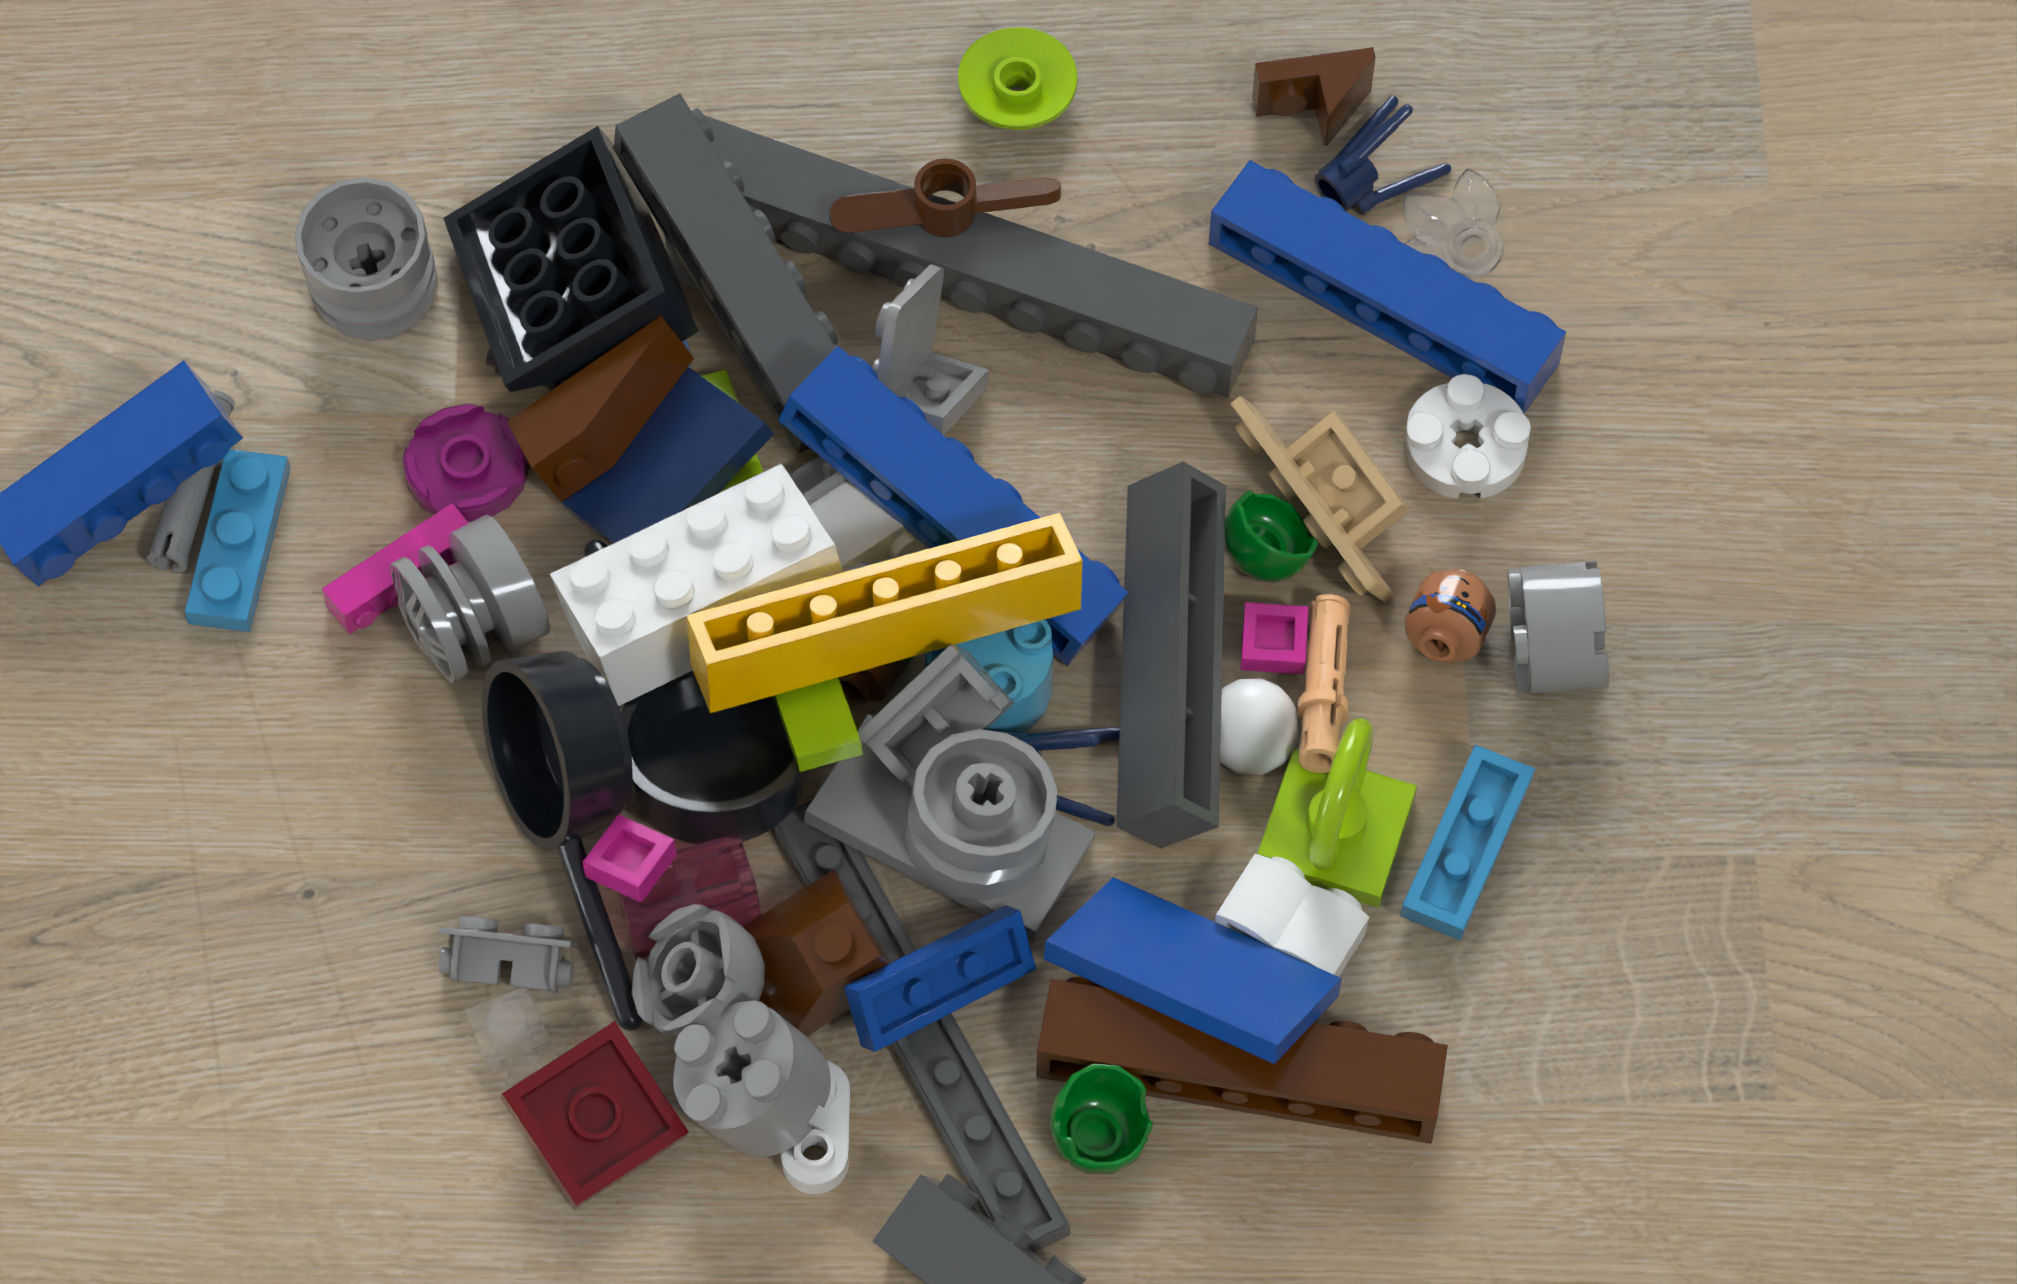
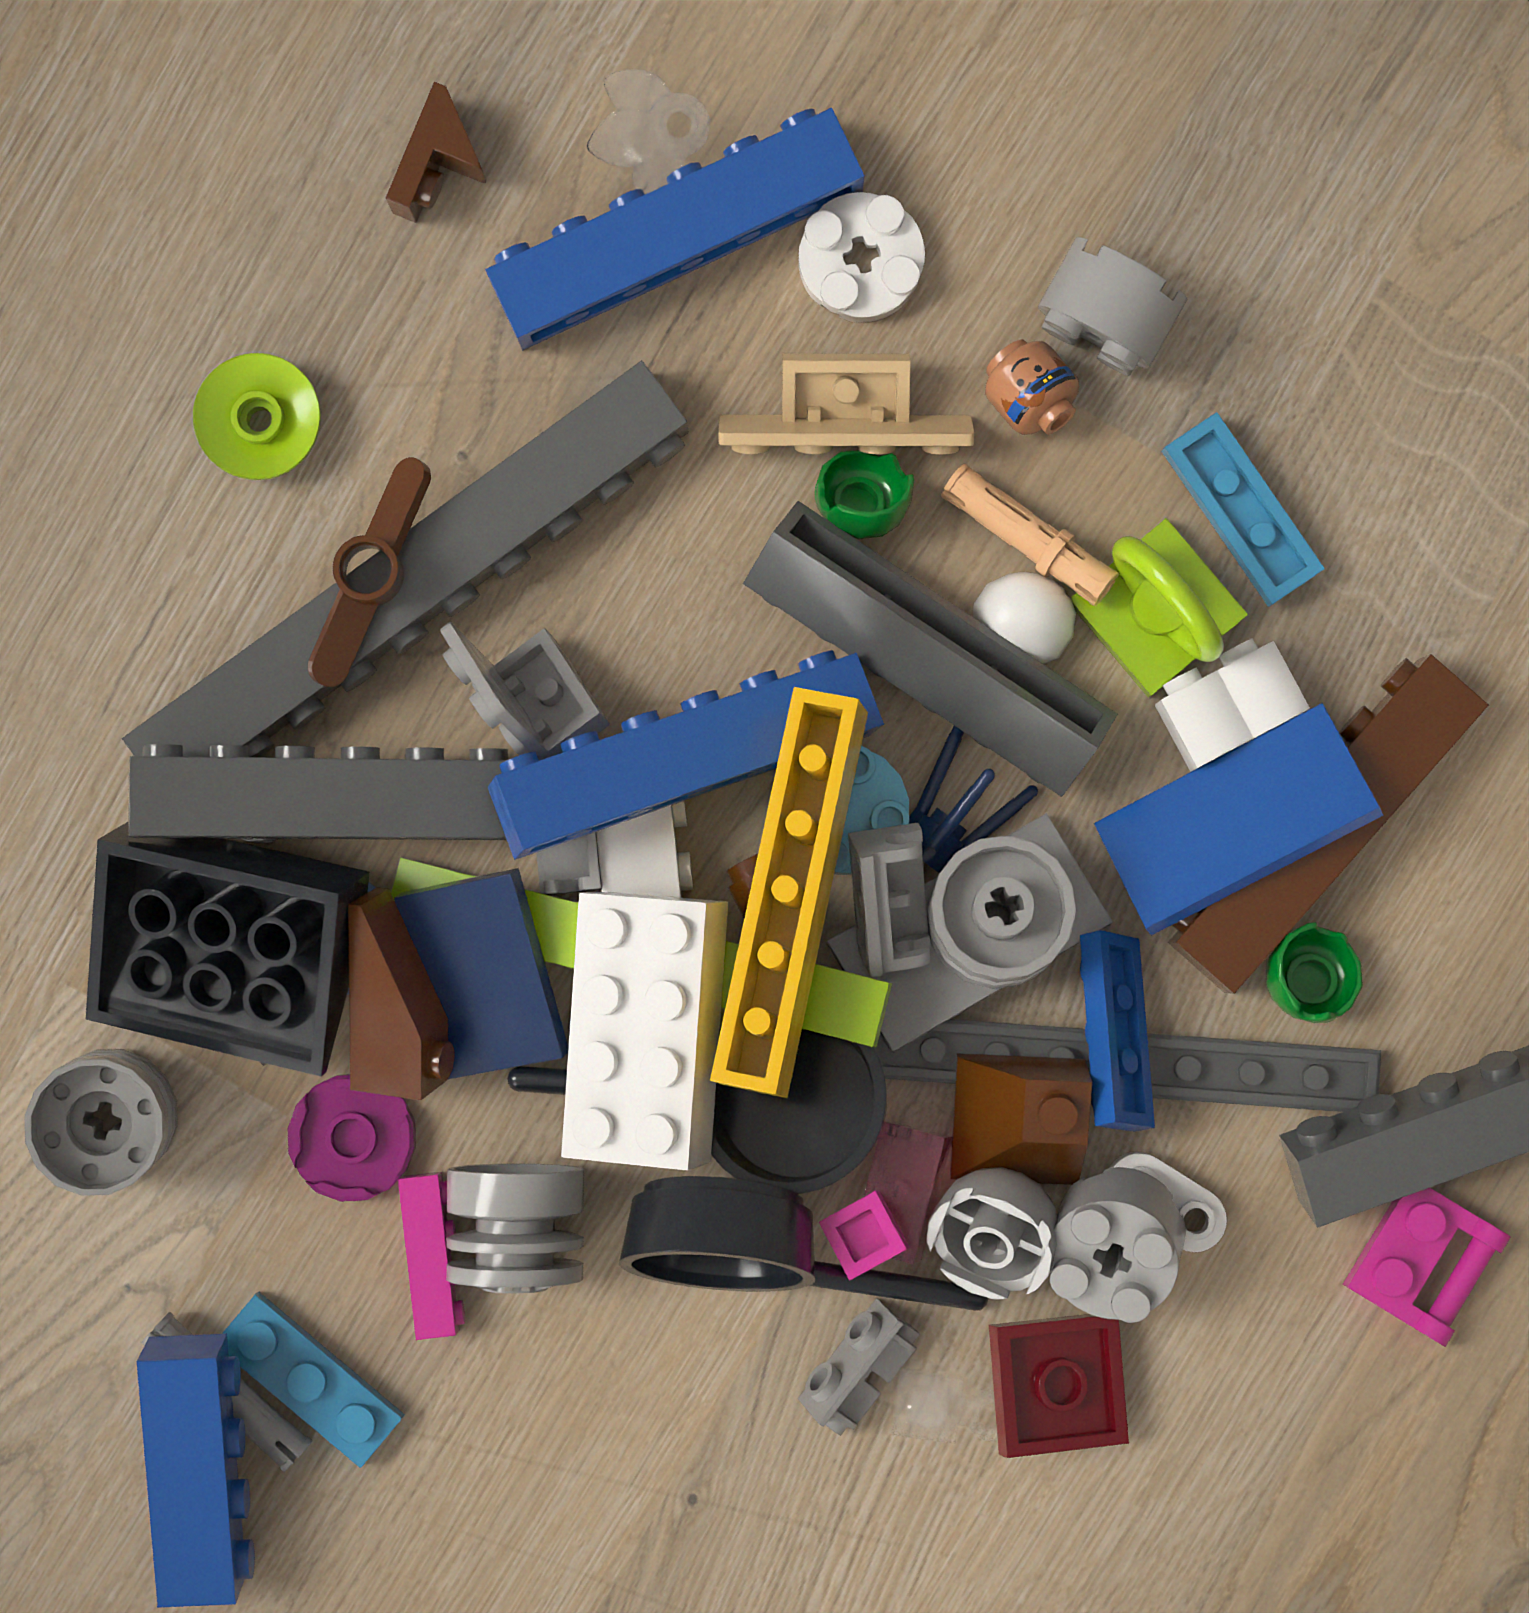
camera: 60 degrees left, 25 degrees up
(1274, 638) = (957, 548): dark pink plate -> none
(1351, 173) = (543, 188): dark blue plant -> none

